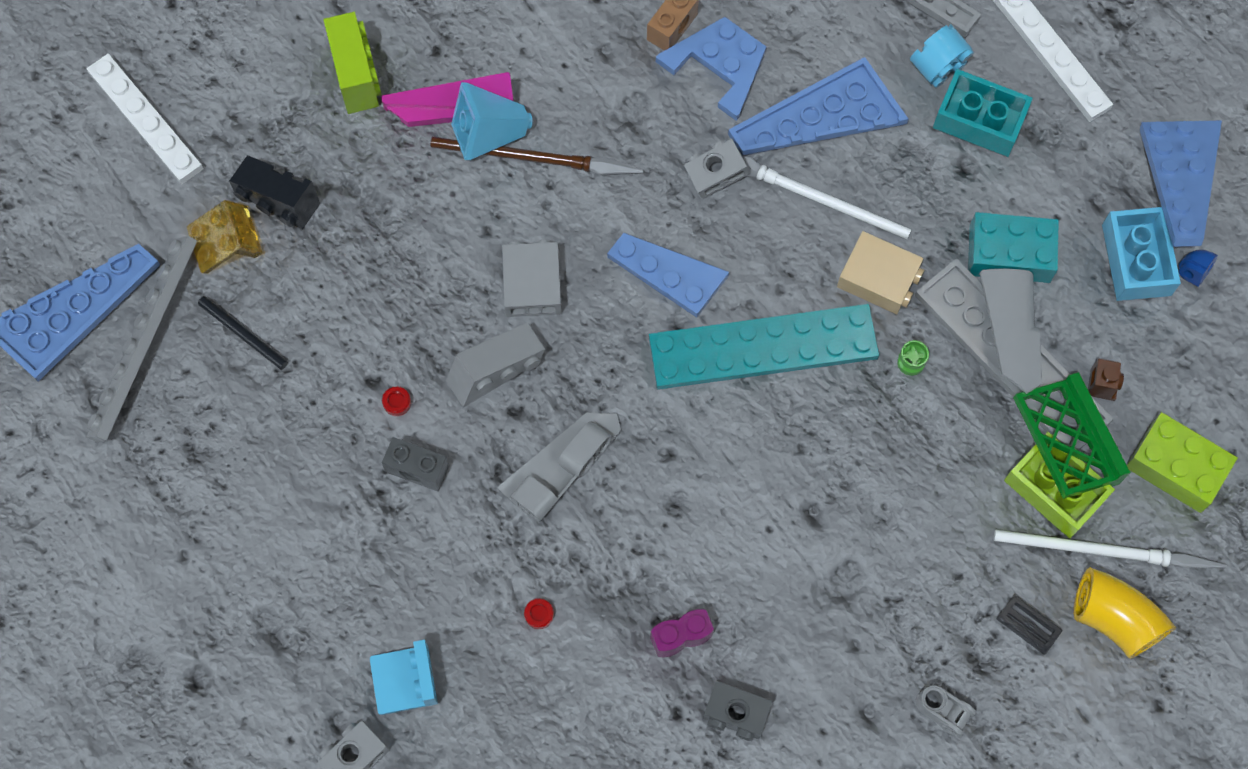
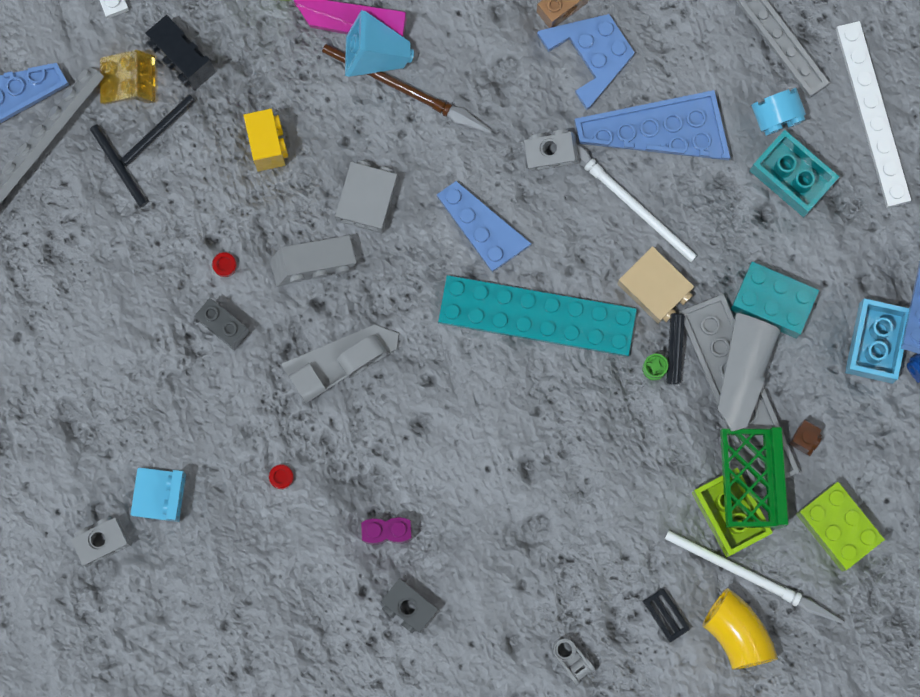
camera: 20 degrees right, 10 degrees up
(274, 282) = (157, 130): none -> black bar
(399, 250) = (265, 144): none -> yellow brick
(927, 330) = (675, 348): none -> black axle

